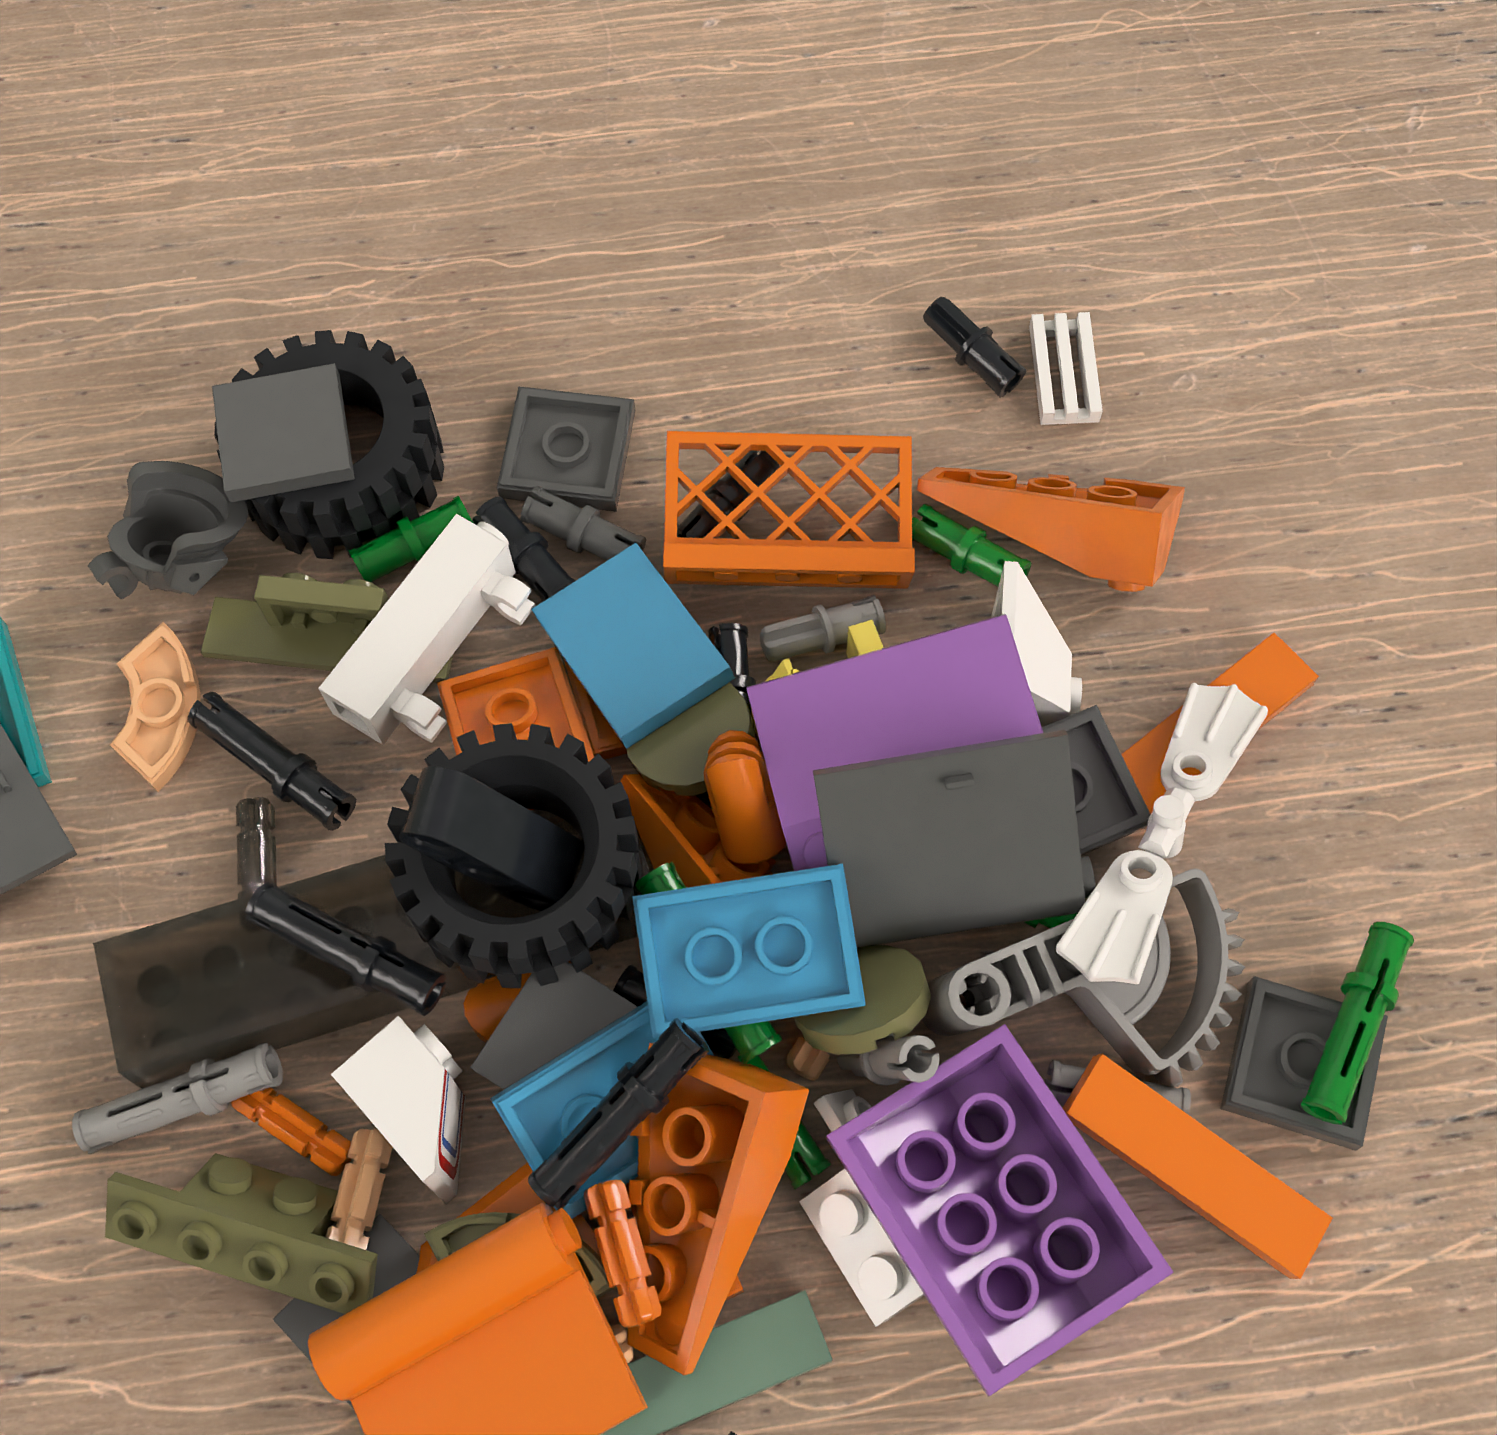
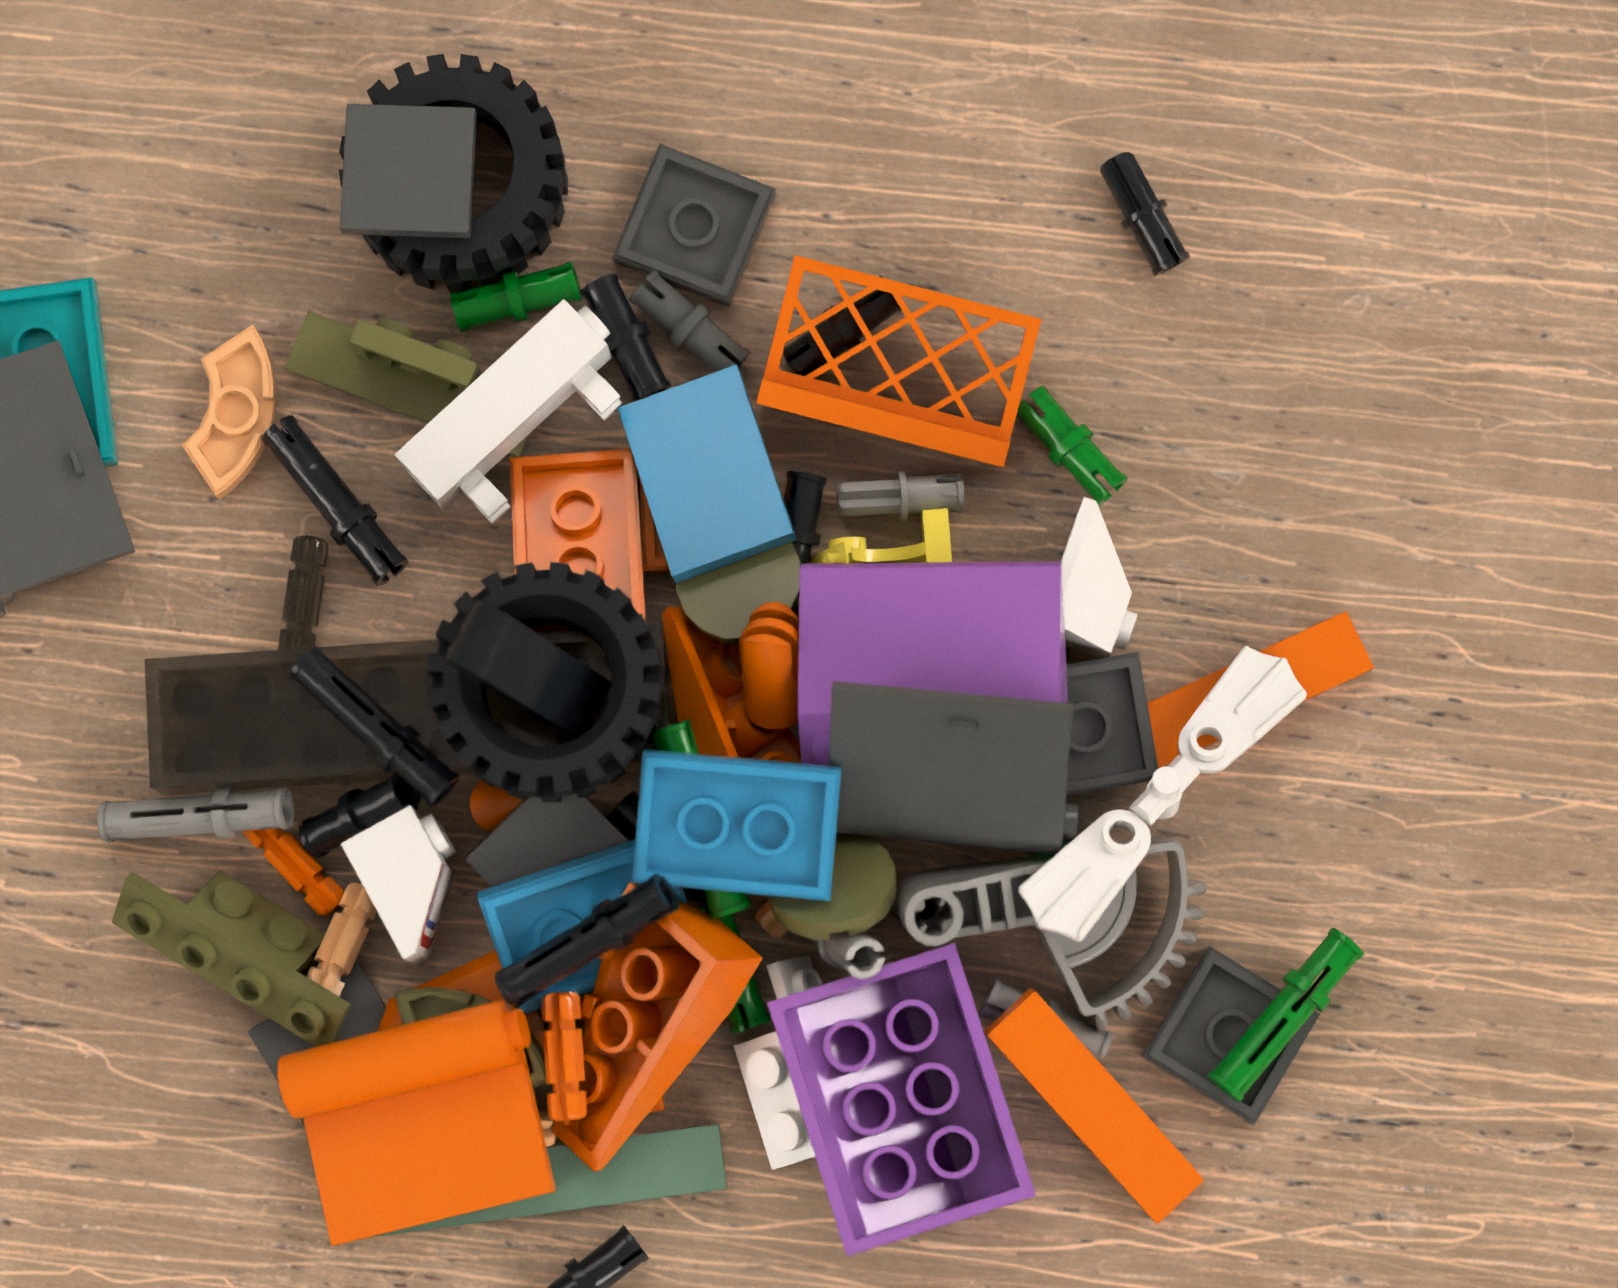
camera: 15 degrees right, 15 degrees up
(170, 530) = (279, 235): dark grey helmet -> none
(316, 1085) = (356, 813): none -> black pin
(1061, 330) = (1243, 209): white tile -> none
(1102, 530) = (1198, 452): orange wedge -> none

